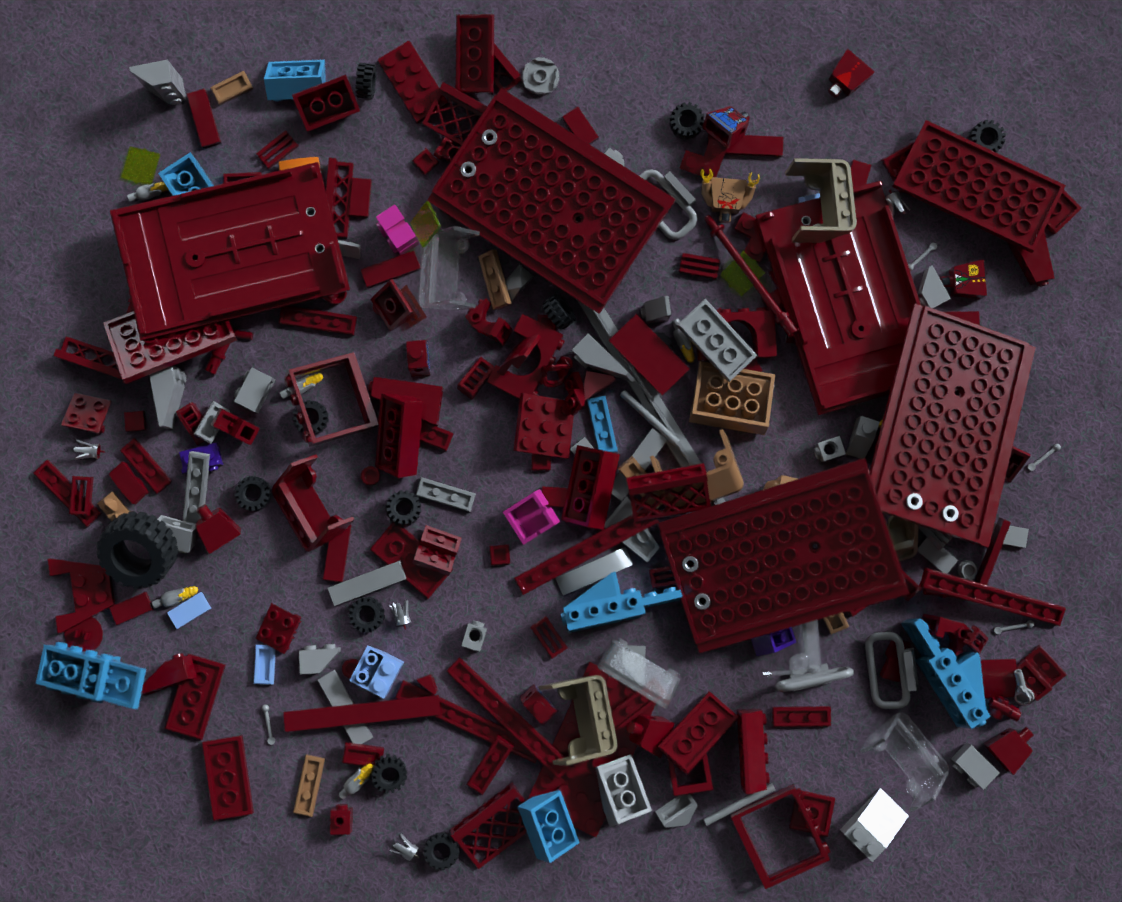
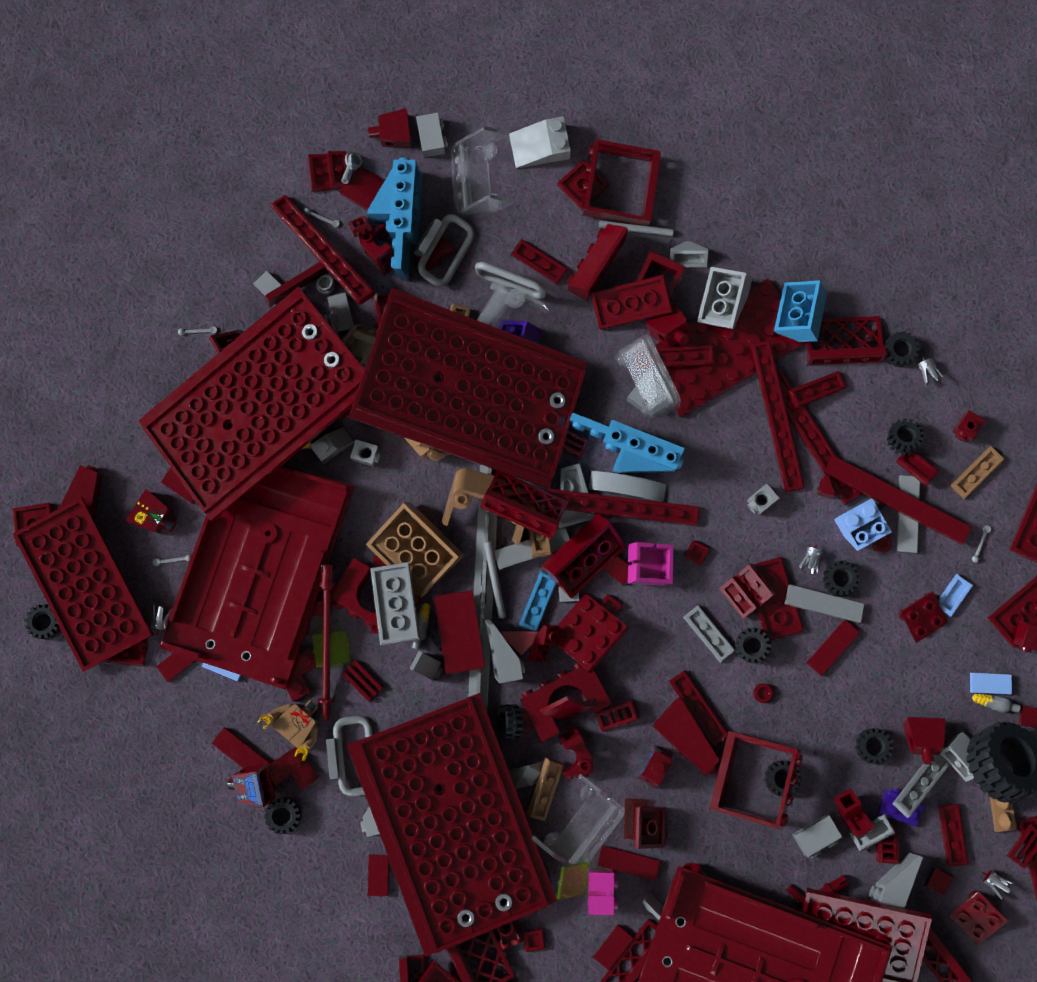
camera: 140 degrees left, 5 degrees down
(128, 484) = (978, 826): dark red slope -> none
(303, 506) = (836, 703): dark red windscreen -> none
(304, 384) = (769, 811): light grey piece -> none
(316, 660) = (908, 569): light grey slope -> none
(318, 320) = (721, 860): dark red tile -> none
(356, 781) = (936, 449): light grey piece -> none
(399, 434) = (717, 709): dark red slope -> none
(536, 80) = (386, 945): light grey tile -> none
(538, 704) = (746, 409): dark red torso -> none
(539, 623) = (700, 454): dark red tile -> none
(563, 365) = (536, 673): dark red piece -> none
(592, 716) = (709, 368): dark tan windscreen -> none
(836, 196) = (207, 656): dark tan windscreen -> none
(849, 75) = (116, 758): dark red torso -> none
(931, 290) = (186, 525): light grey slope -> none
(1000, 707) = (377, 164): dark red plate -> none

